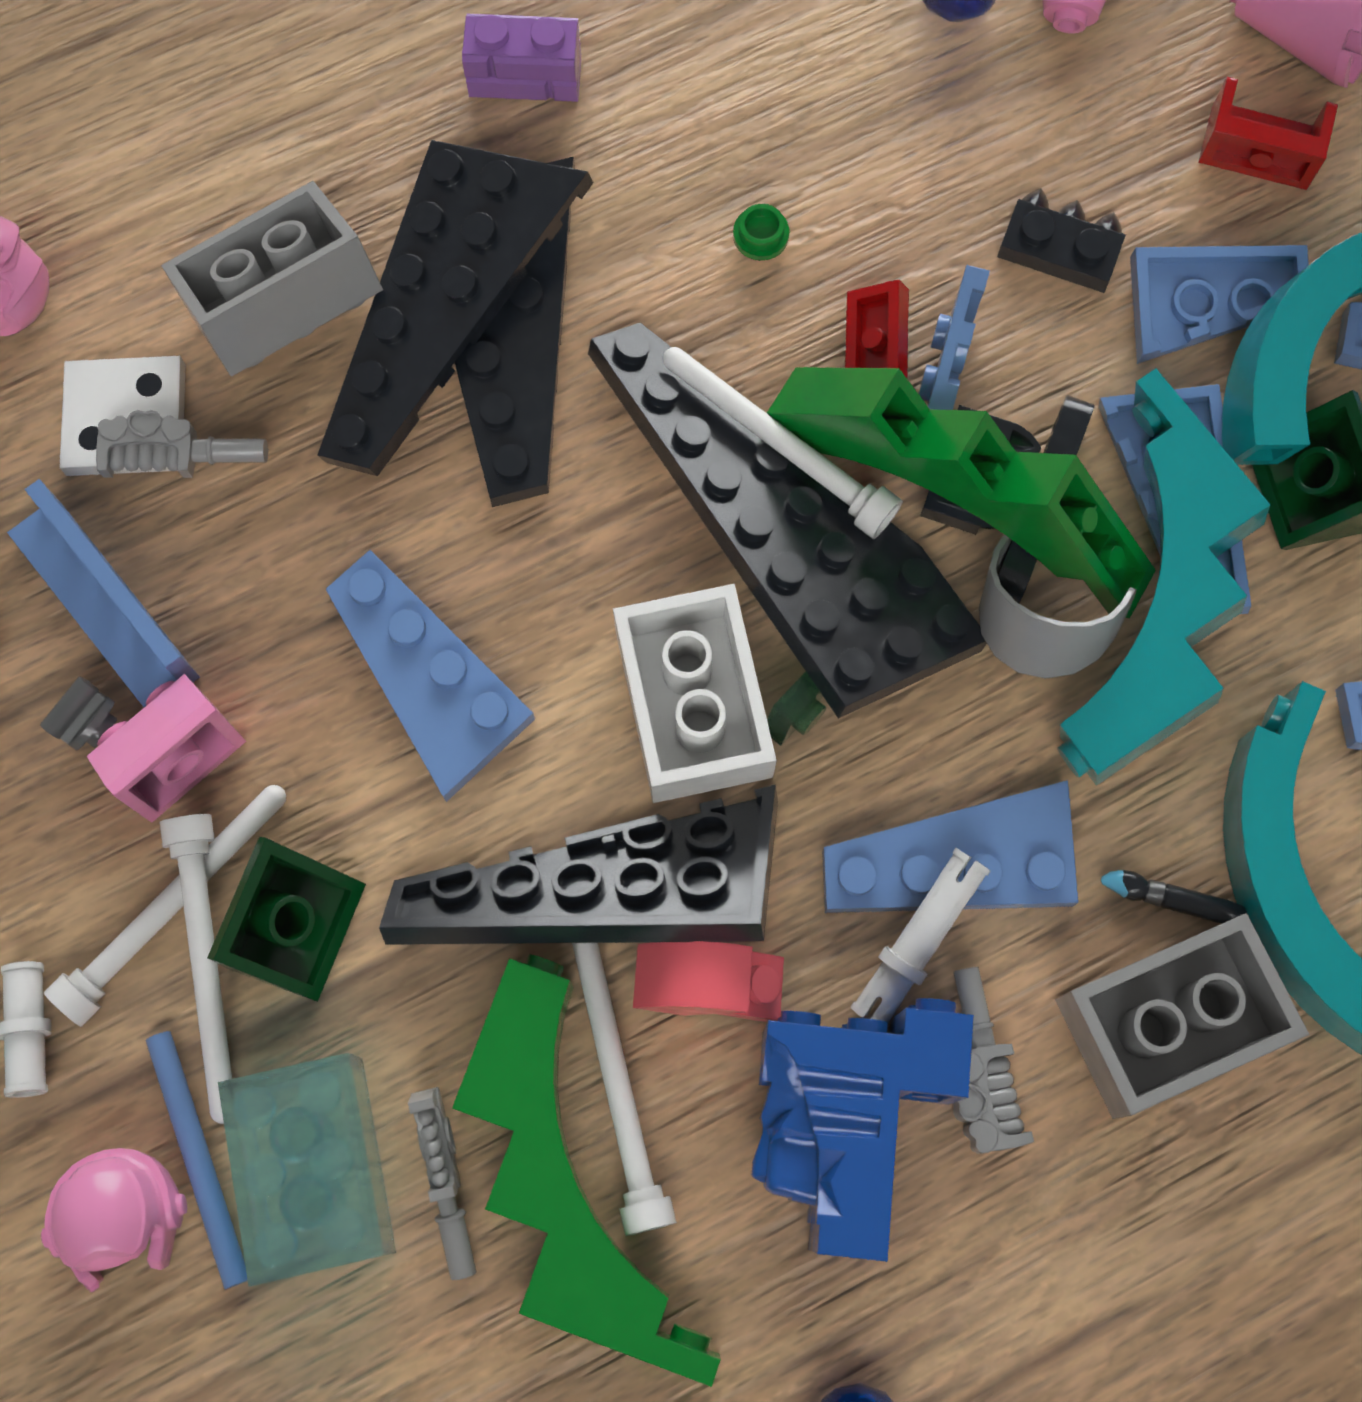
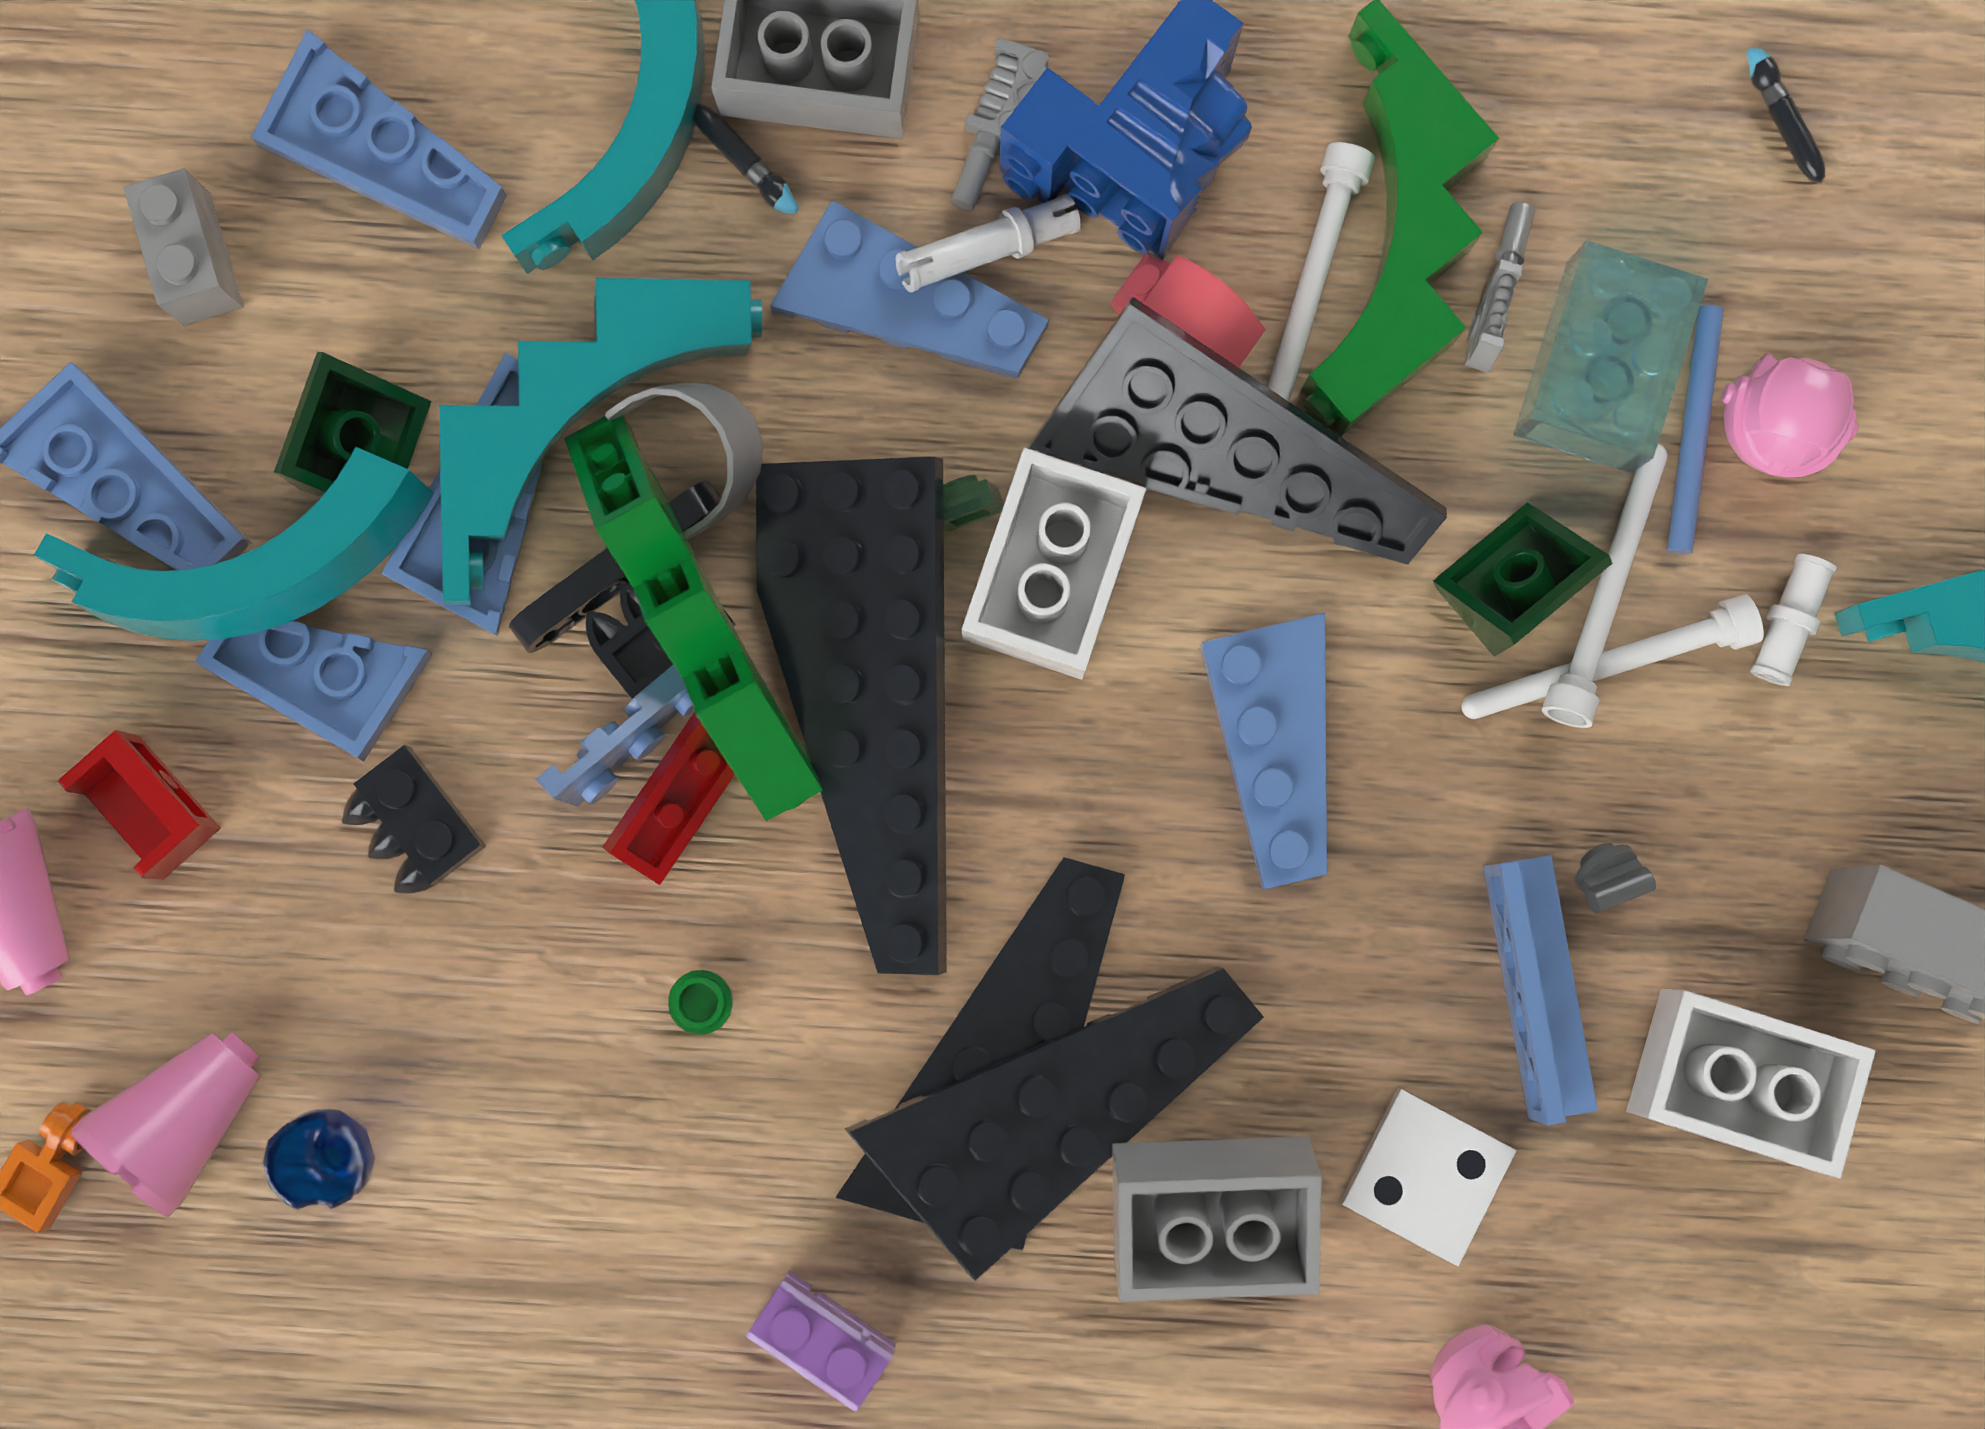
camera: 150 degrees left, 10 degrees up
(159, 442) = (1412, 1113): light grey piece -> none
(164, 748) = (1555, 799): bright pink slope -> none
(869, 505) = (785, 642): white piece -> none

